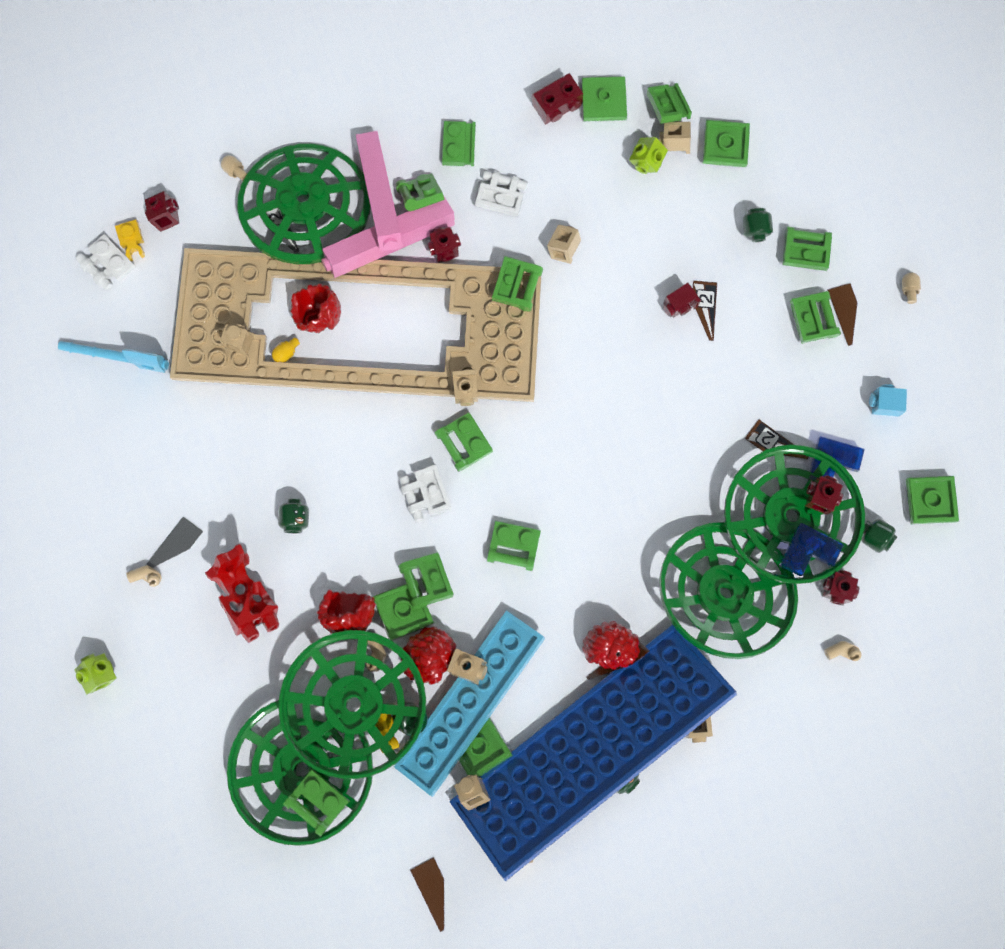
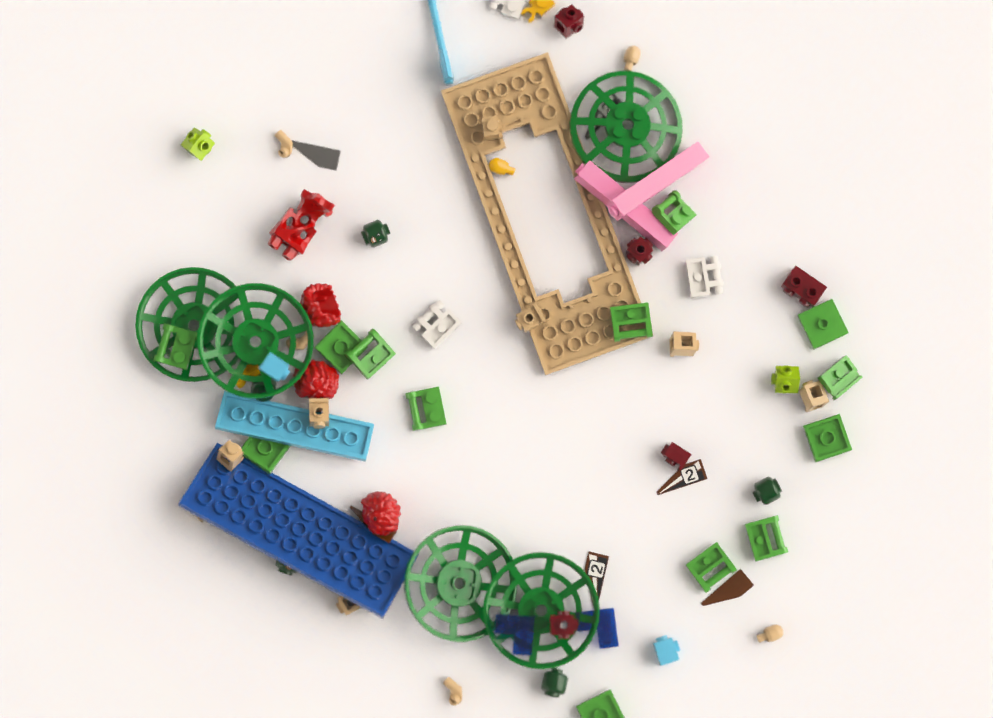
camera: 65 degrees right, 5 degrees up
(315, 308) = (542, 176): red hair -> none
(395, 693) = (275, 368): none -> medium azure brick
(431, 885) = (151, 457): reddish brown sticker -> none
(458, 143) = (732, 224): bright green plate -> none
(470, 438) = (495, 339): bright green plate -> none
(833, 589) = (500, 661): dark red brick -> none

